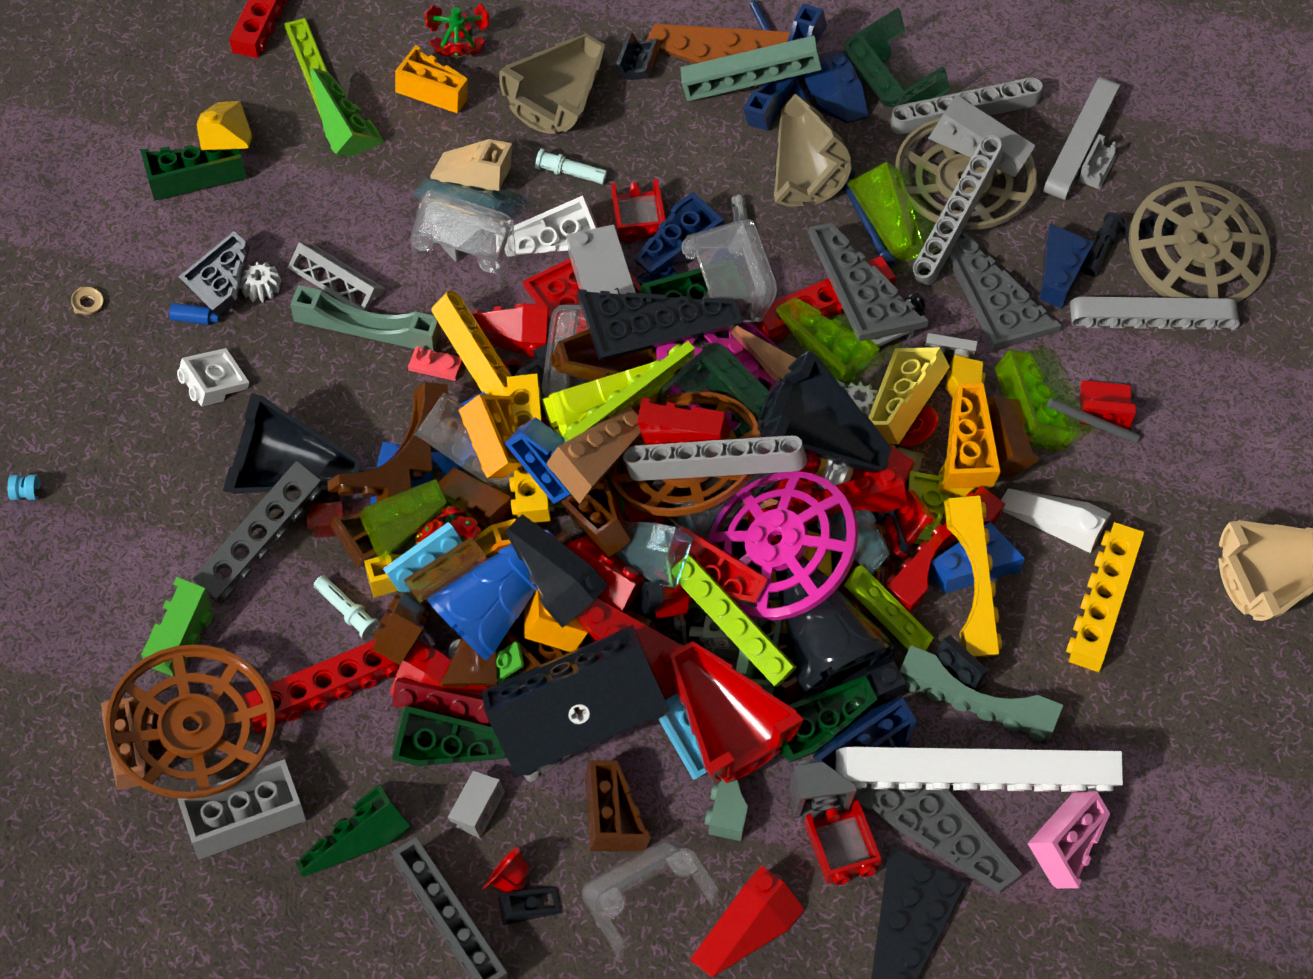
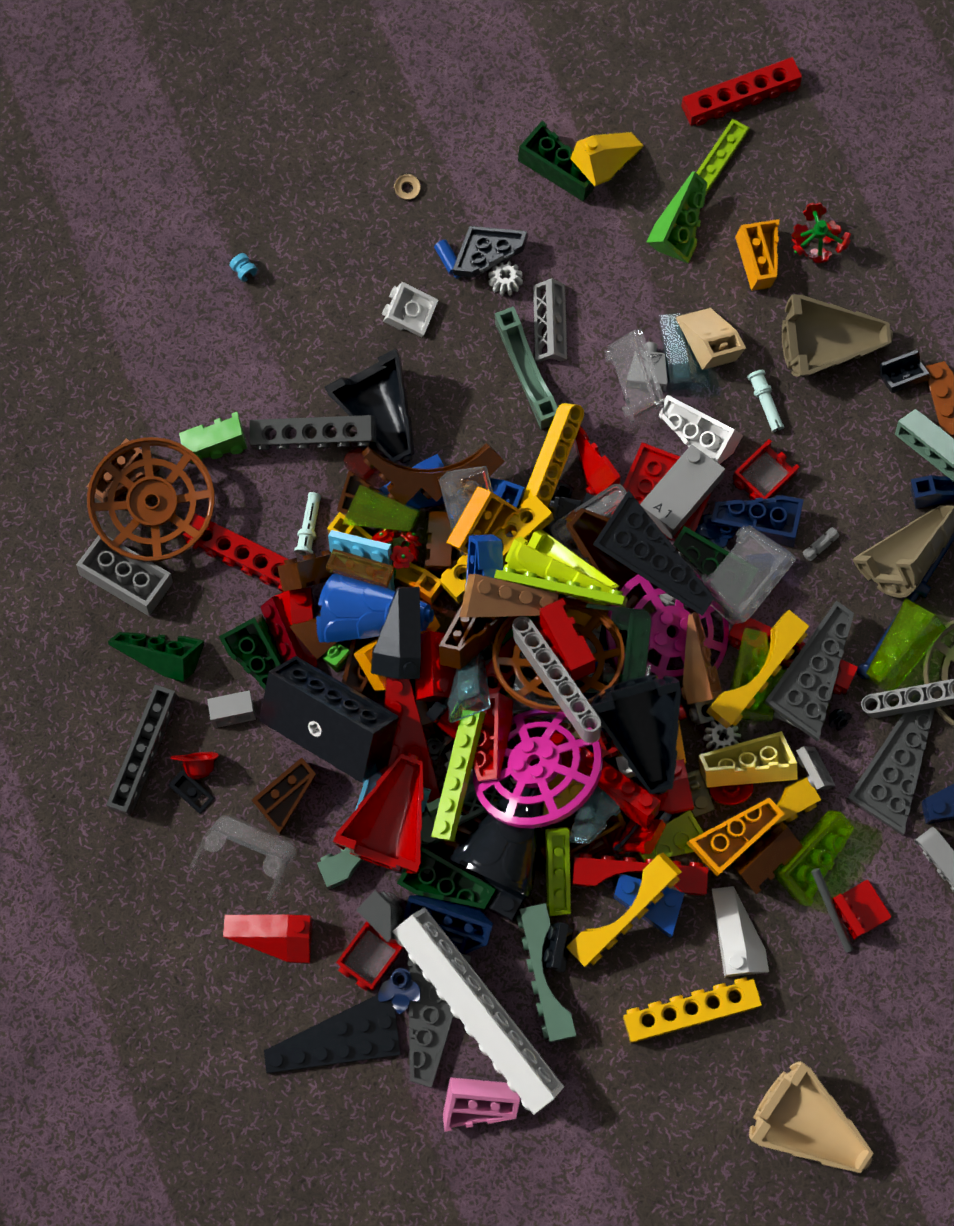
camera: 60 degrees right, 15 degrees up
(435, 363) = (531, 435): coral plate -> none
(811, 282) = (784, 635): none -> yellow arch
(904, 838) = (400, 993): none -> dark blue plate

